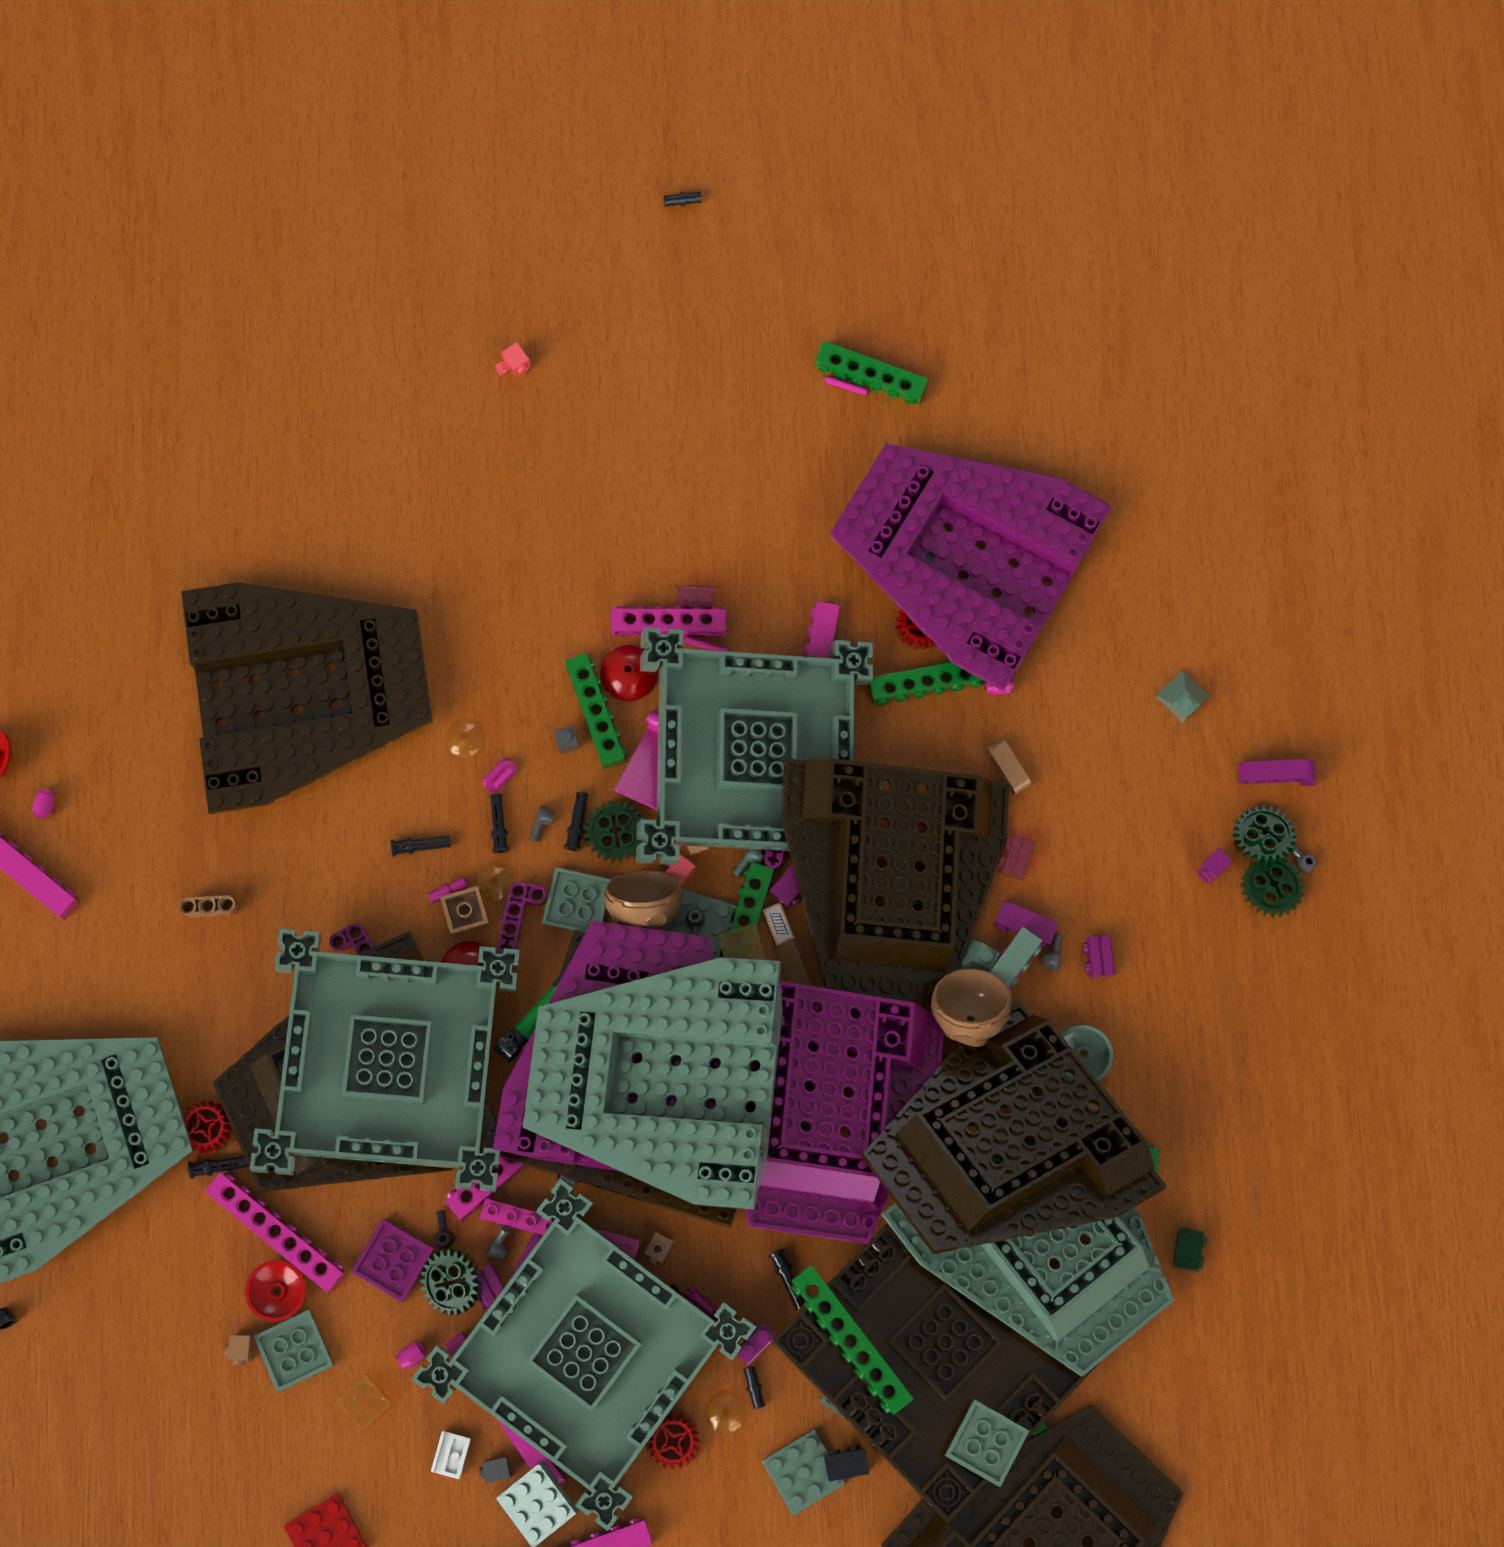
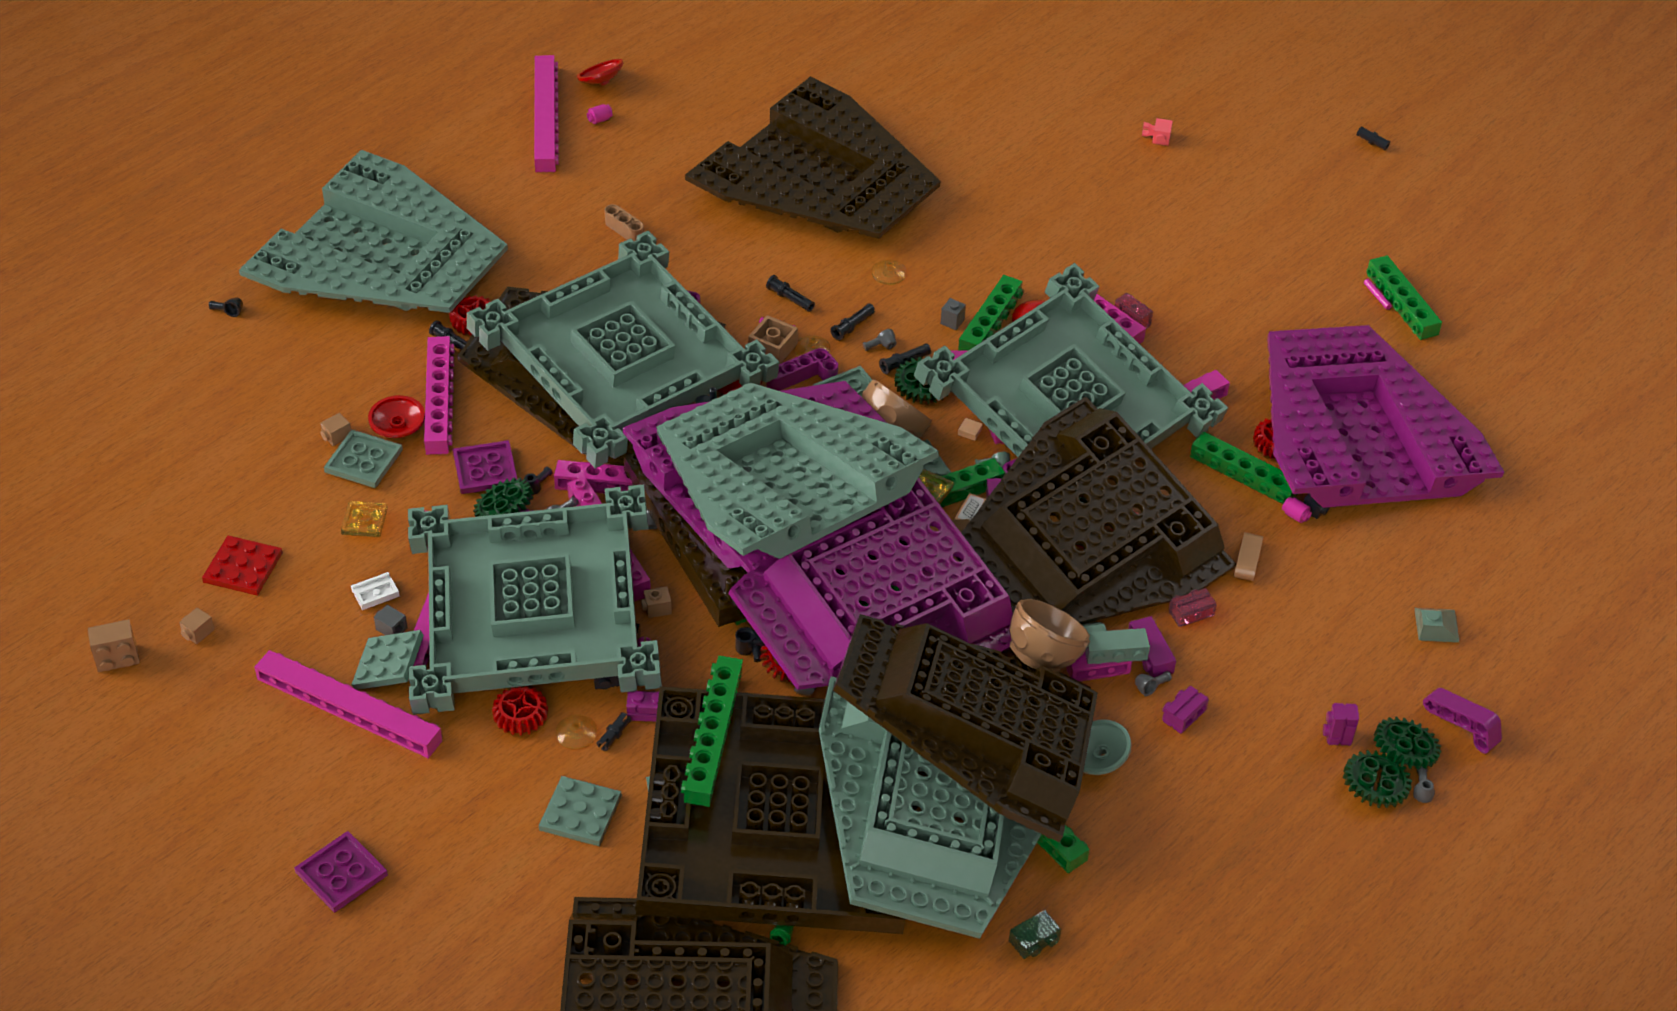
camera: 45 degrees right, 30 degrees down
(499, 775) = (887, 302): dark pink piece -> none
(681, 870) = (940, 430): coral brick -> none
(846, 1464) = (618, 821): black brick -> none
(986, 1443) = (727, 876): sand green plate -> none

